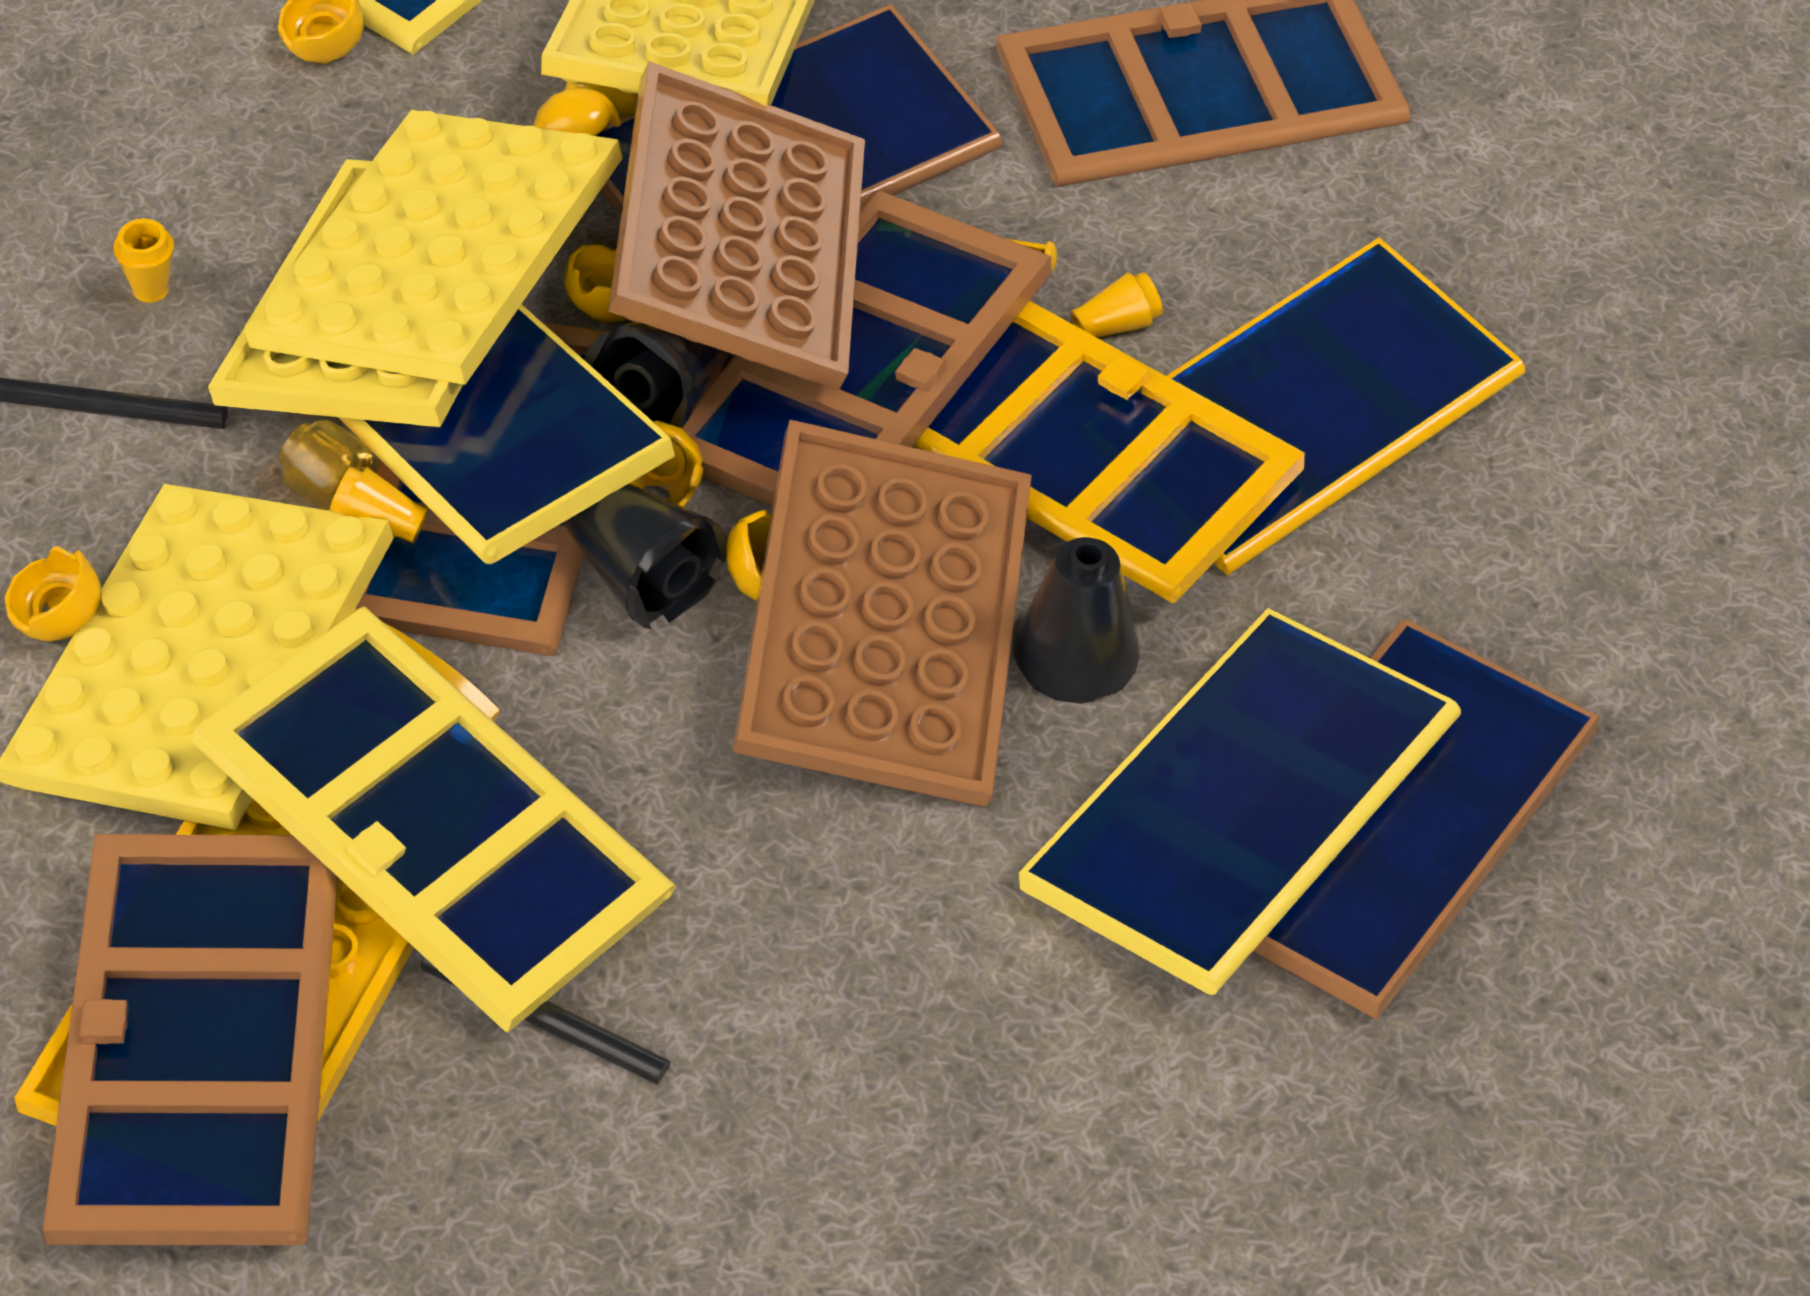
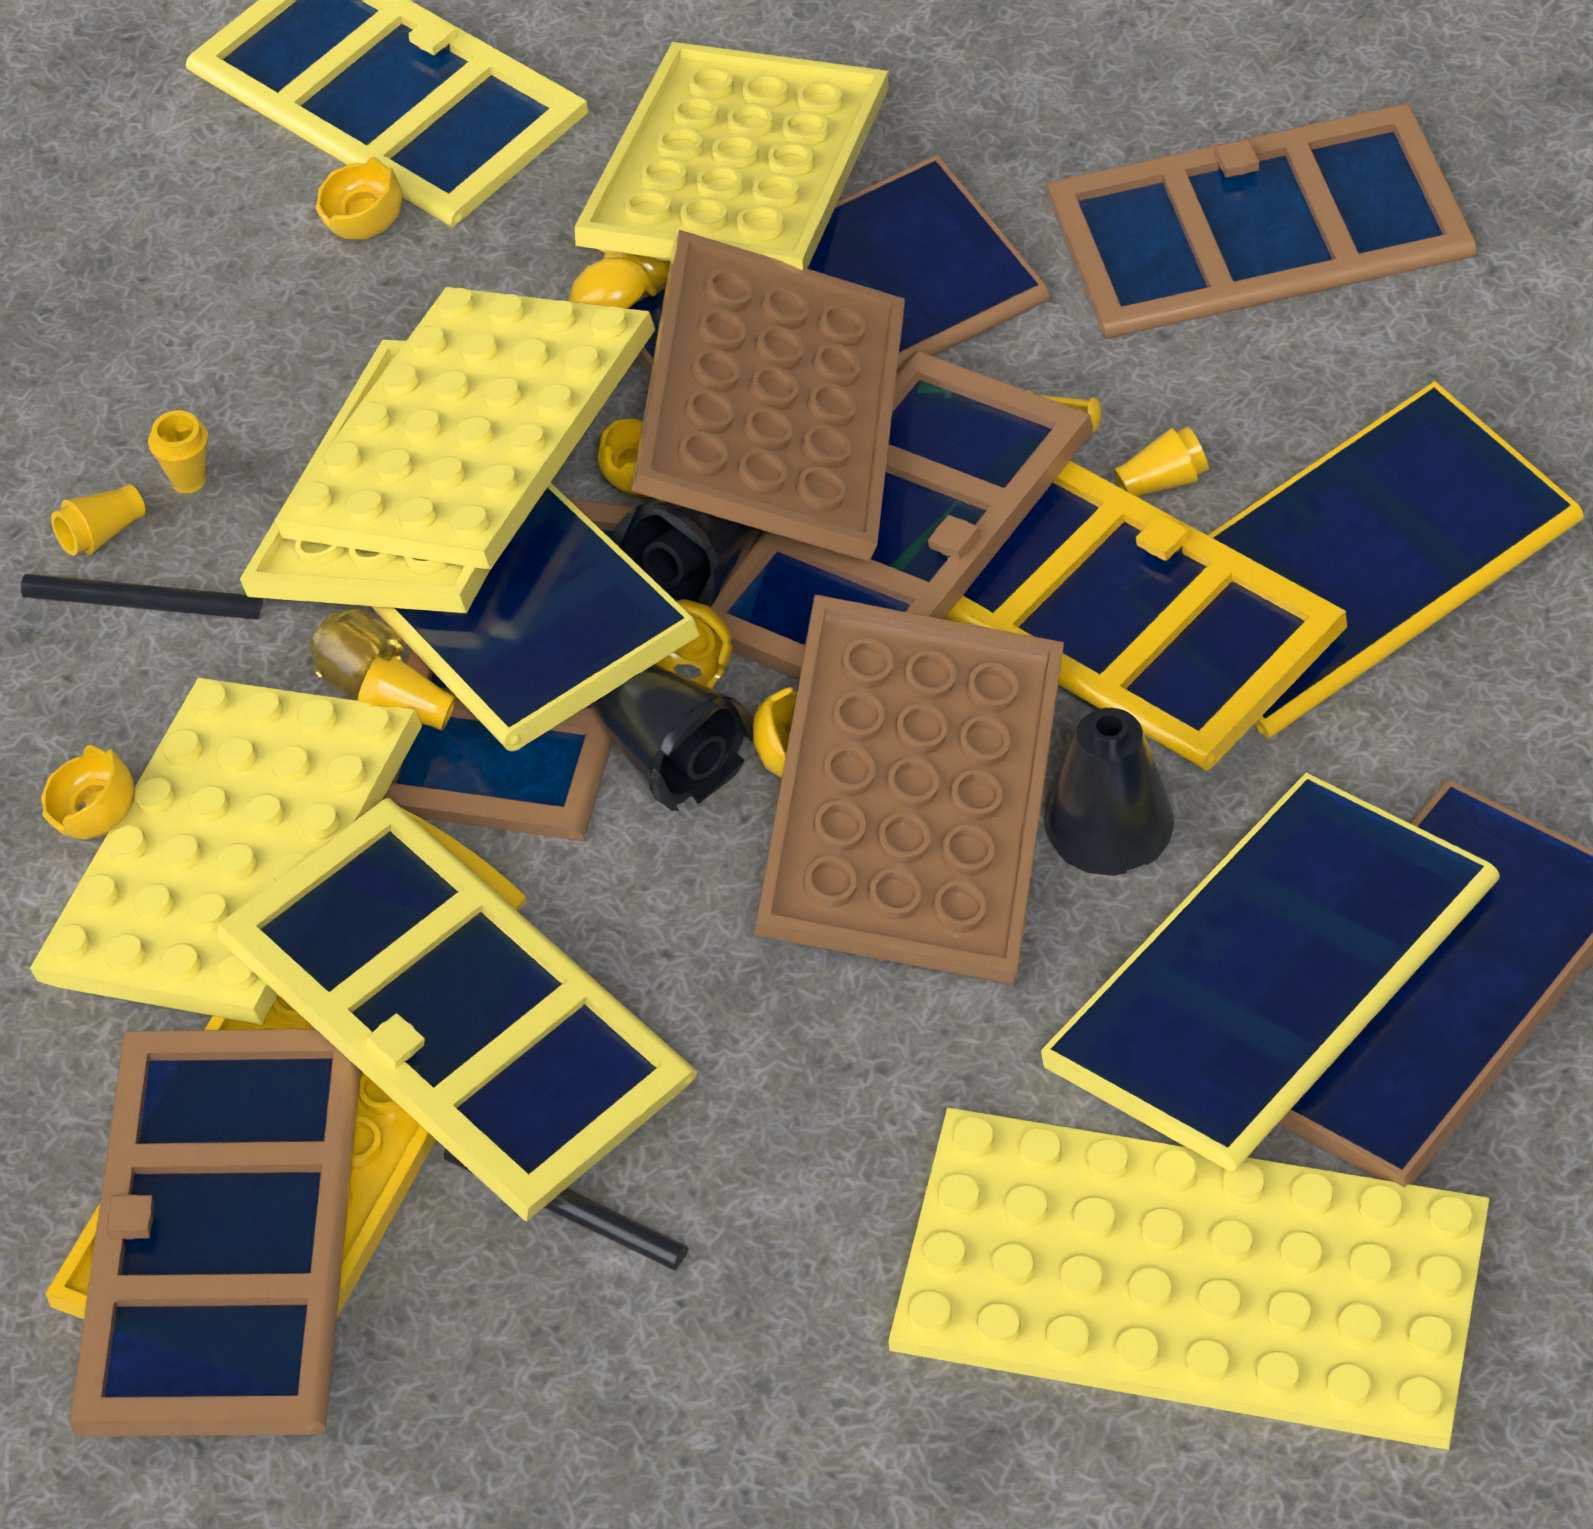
camera: 10 degrees right, 0 degrees up
(56, 324) = (95, 519): none -> yellow cone
(1173, 1101) = (1192, 1279): none -> light yellow plate

